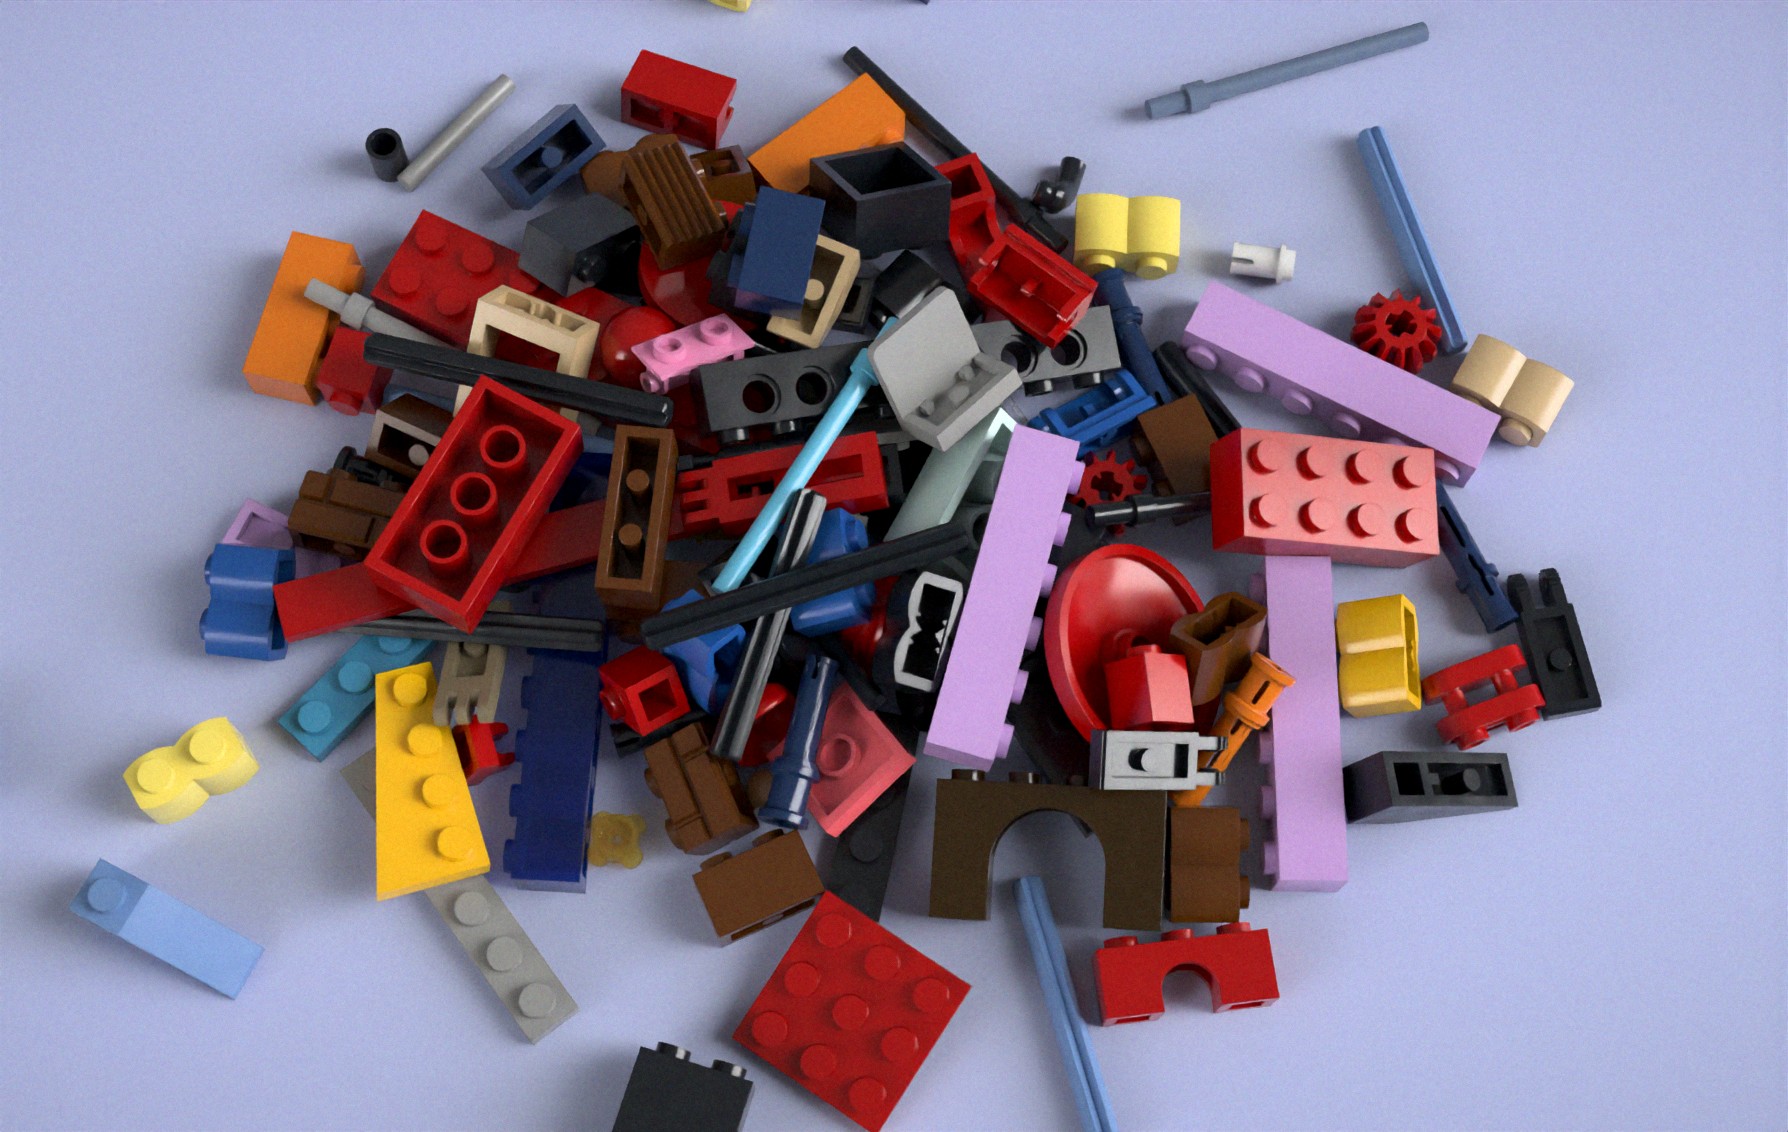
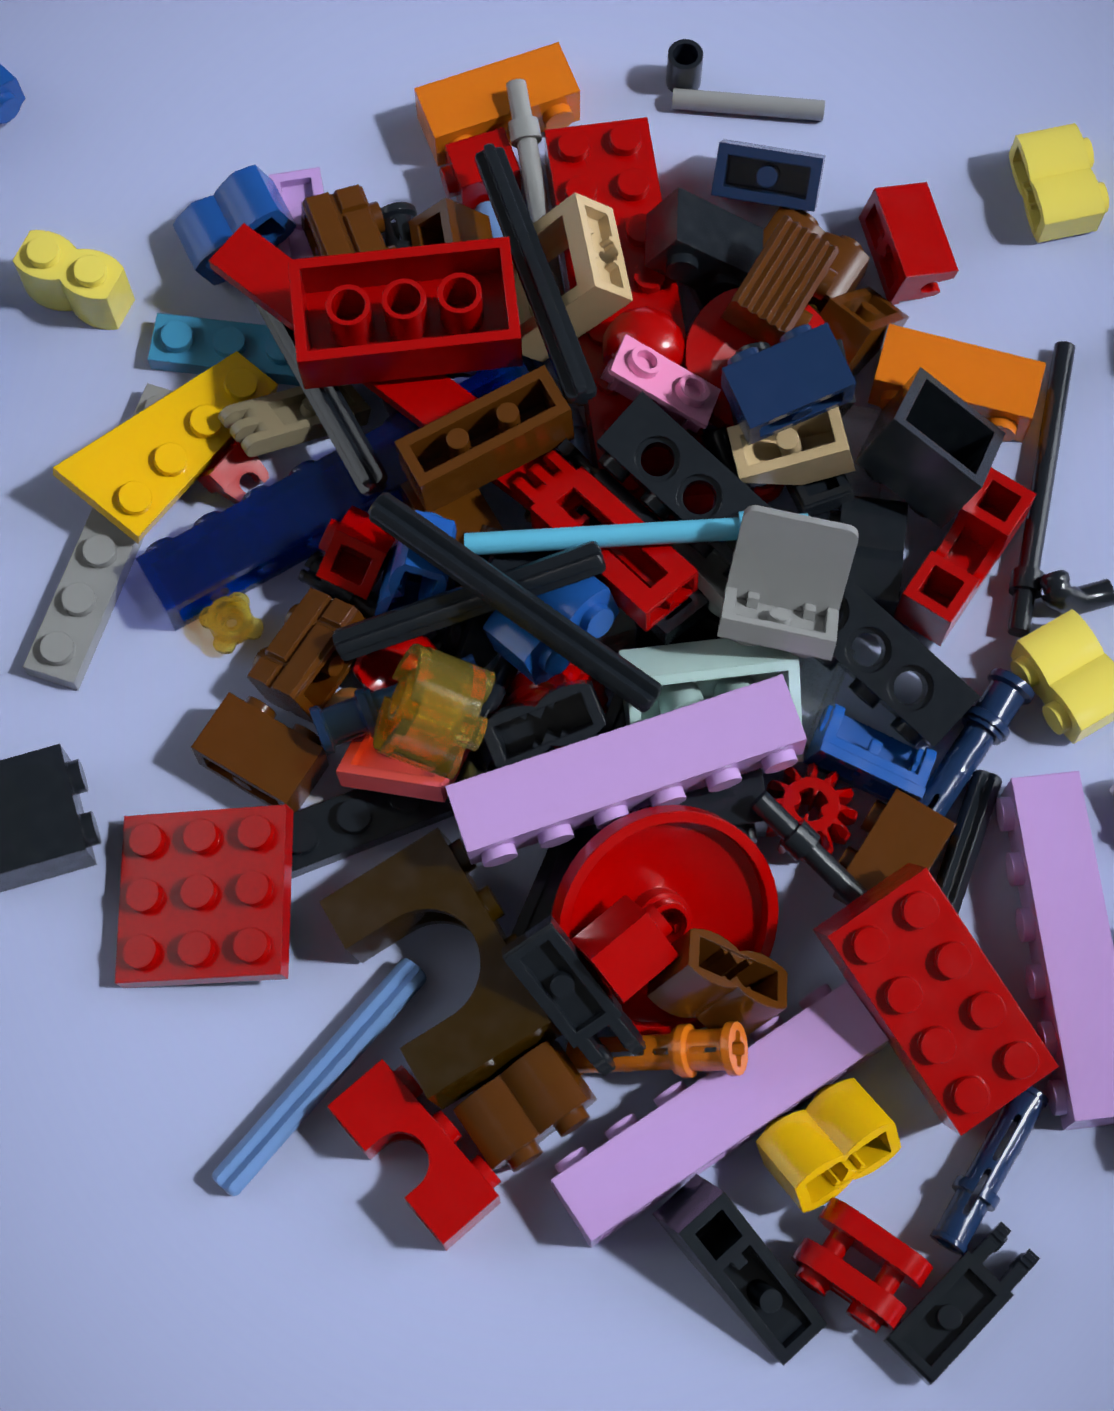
camera: 60 degrees right, 0 degrees up
(850, 711) = (433, 711): none -> clear yellow brick
(1032, 286) = (936, 615): red hinge -> none

